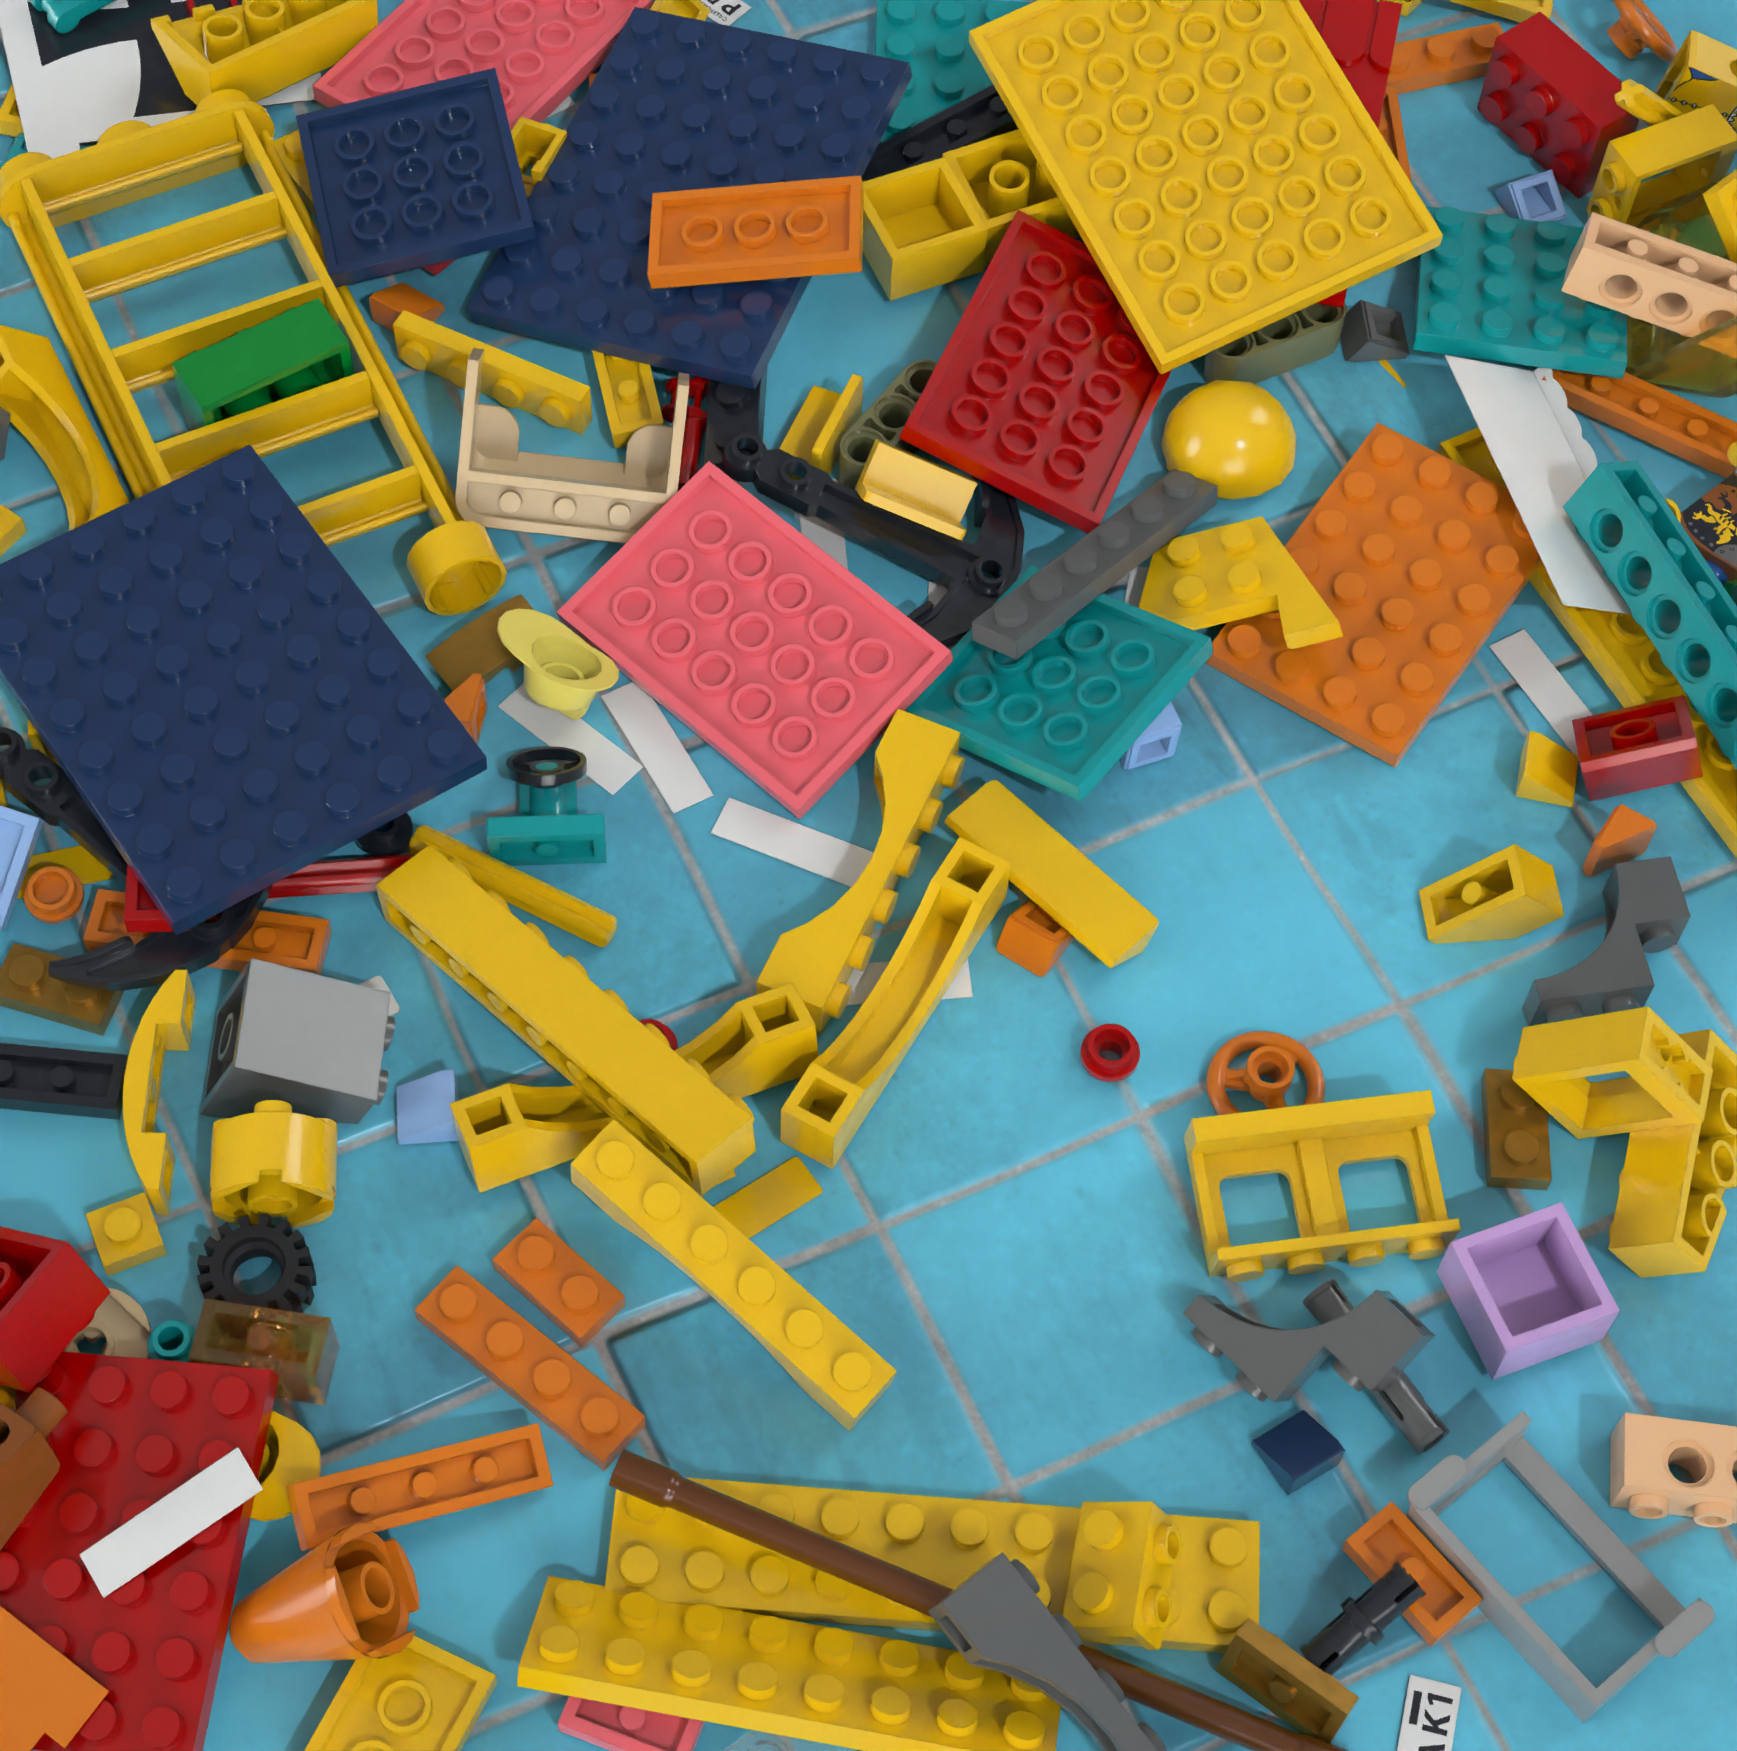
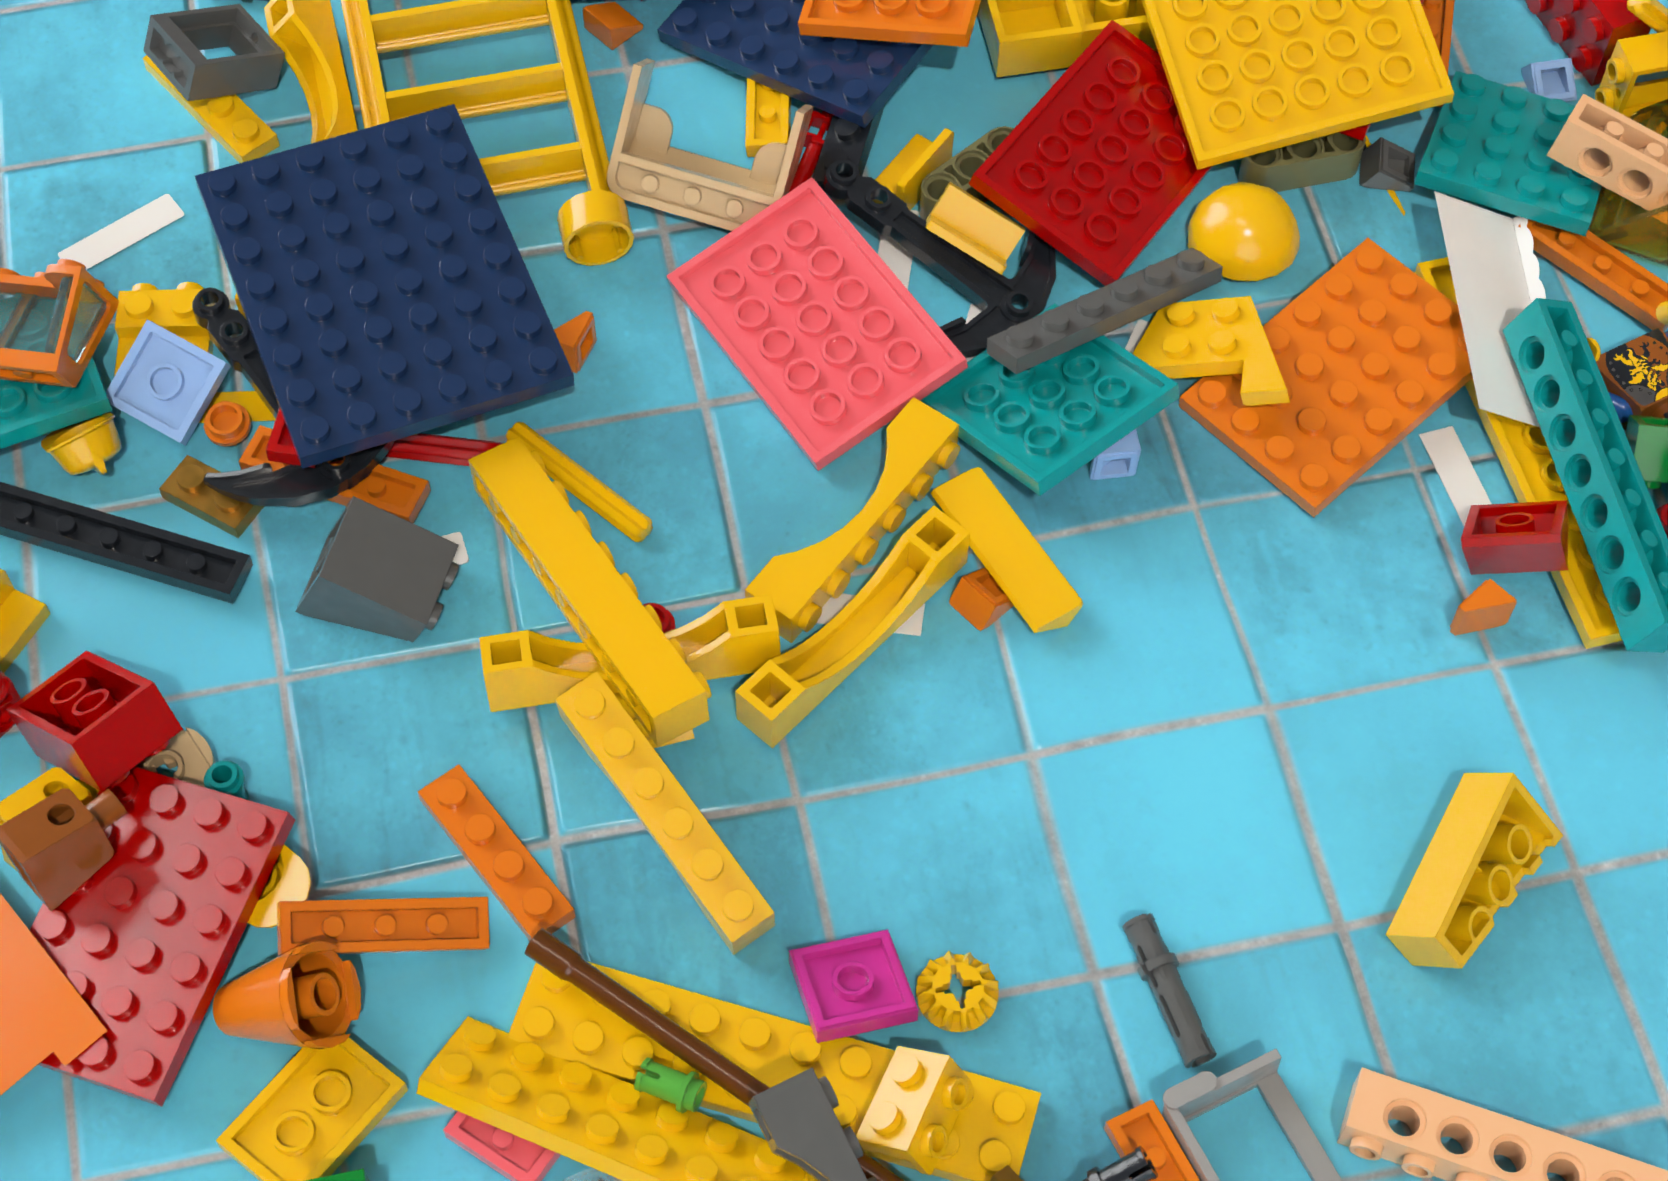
camera: 15 degrees right, 0 degrees up
(126, 1234) = (215, 691): yellow plate -> none
(163, 1027) = (281, 539): yellow slope -> none
(170, 1522) = (184, 912): white sticker -> none
(254, 1241) = (297, 717): black tyre -> none
(262, 365) = (483, 44): green brick -> none
(274, 1165) = (334, 660): yellow brick -> none
(290, 1343) = (314, 799): clear orange brick -> none
(390, 842) = (491, 430): black plate -> none
(425, 1109) = (462, 639): light blue slope -> none
(476, 648) = (613, 289): pearl gold slope -> none
(504, 376) = (668, 83): yellow plate -> none
(548, 820) = (621, 436): teal piece -> none
(558, 664) = (655, 314): light yellow piece -> none
(559, 1282) = (535, 793): orange plate -> none
(605, 761) = (655, 375): white sticker -> none
(657, 747) = (721, 395): white sticker -> none
(770, 1197) = (715, 762): yellow sticker -> none
(791, 842) = (805, 487): white sticker -> none
(824, 1608) = (671, 1085): none -> bright green pin
(1006, 1439) = (853, 986): none -> dark pink plate
(1115, 1039) = (1020, 688): red plate -> none
(1118, 1444) = (942, 1008): none -> yellow gear
(1274, 1058) = (1146, 727): orange piece -> none
(1298, 1451) = (1088, 1045): dark blue slope -> none
(1308, 1149) = (1159, 806): yellow window -> none
(1369, 1344) = (1161, 967): dark grey arch -> none
(1492, 899) = (1365, 636): yellow slope -> none
(1514, 1134) = (1337, 825): pearl gold plate -> none
(1527, 1291) = (1307, 954): lavender piece -> none
(1547, 771) = (1438, 543): yellow slope -> none
(1642, 915) = (1449, 719): dark grey arch -> none
(1665, 1085) = (1454, 816): yellow window -> none

